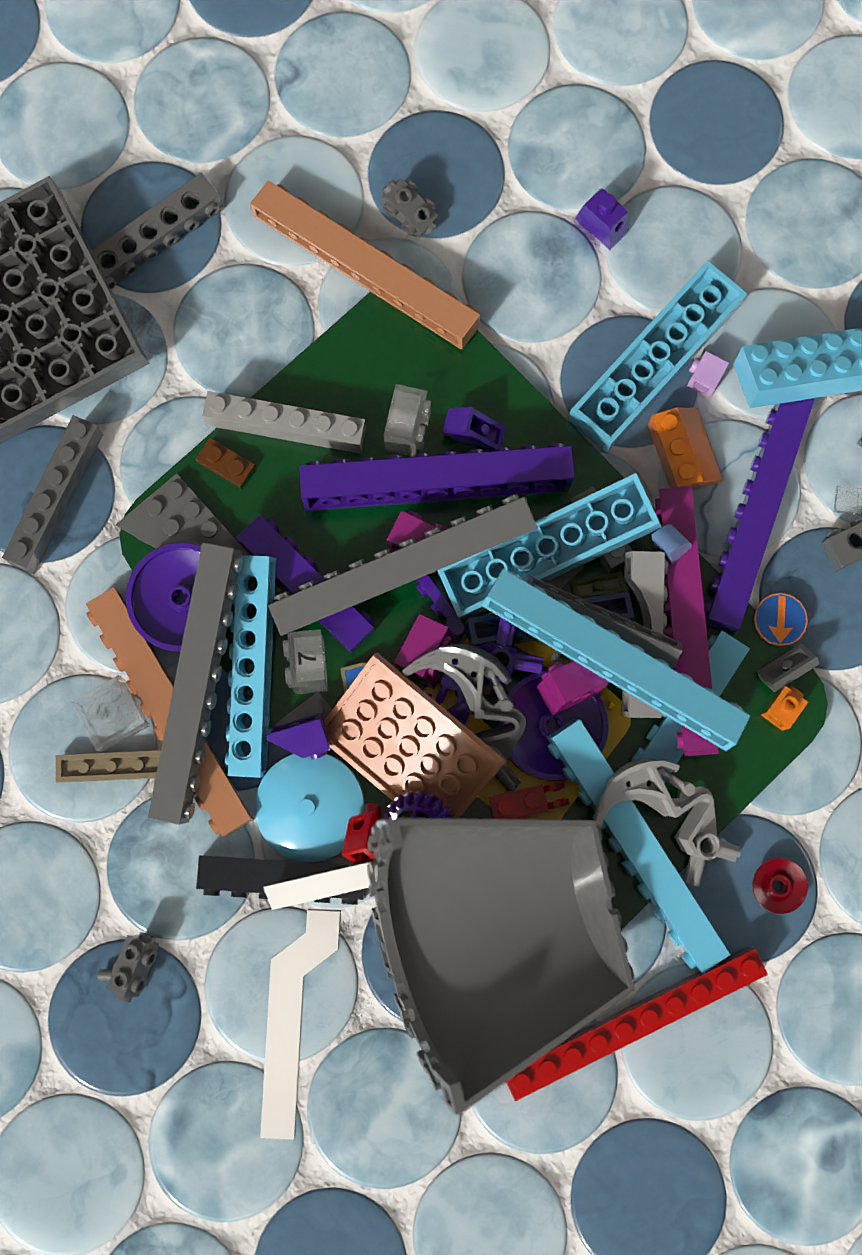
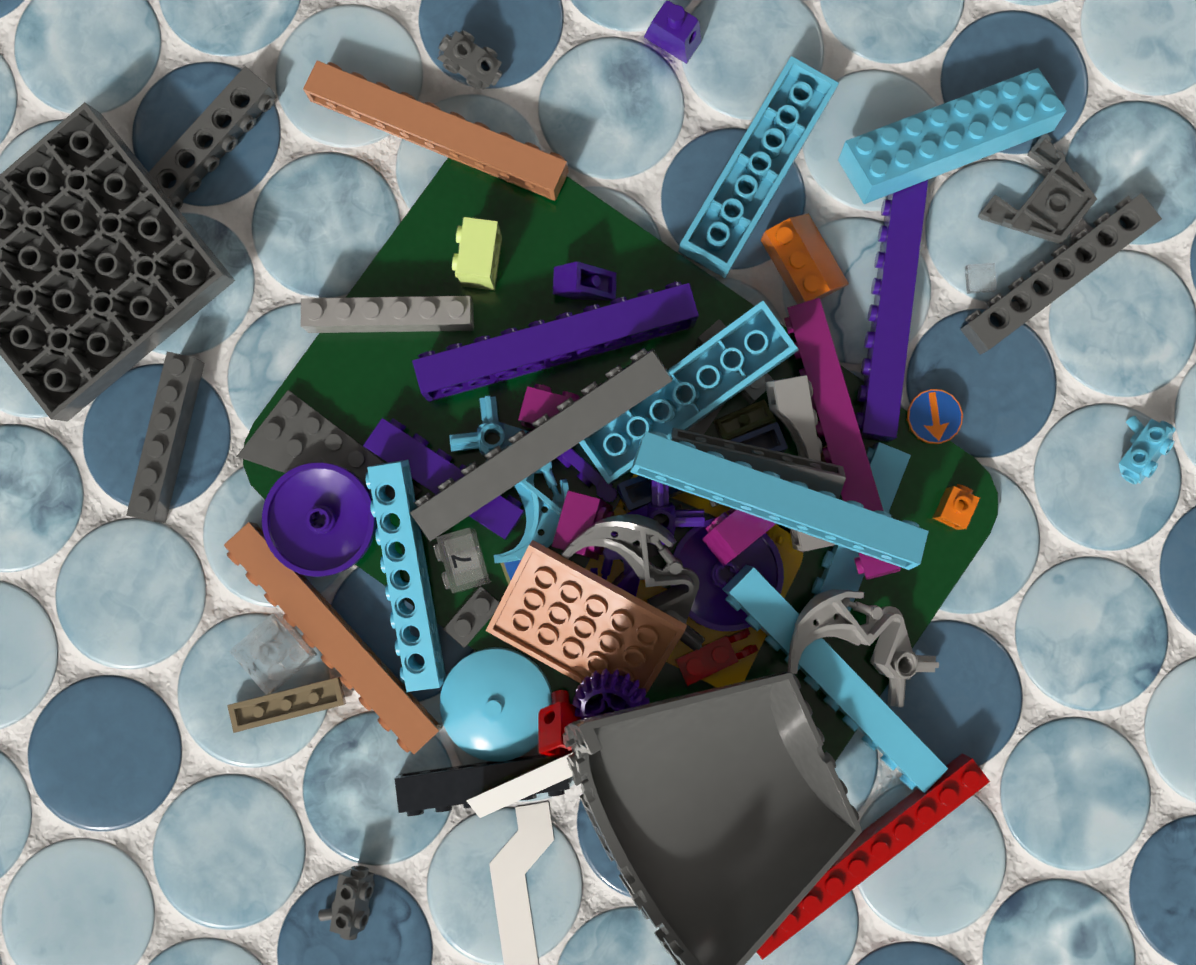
camera: 10 degrees left, 5 degrees up
(195, 684) = (353, 607): dark grey brick -> none
(225, 463) = (336, 369): reddish brown plate -> none
(302, 737) = (473, 639): dark purple slope -> none
(377, 386) = (478, 253): none -> yellowish green brick
(383, 616) = (531, 498): none -> medium azure piece
(405, 420) = (512, 288): clear brick -> none
(670, 541) = (811, 363): medium blue brick -> none
(707, 373) = (812, 174): lavender brick -> none
(788, 667) = (952, 465): dark grey plate -> none
(793, 888) = (997, 688): dark red dish -> none

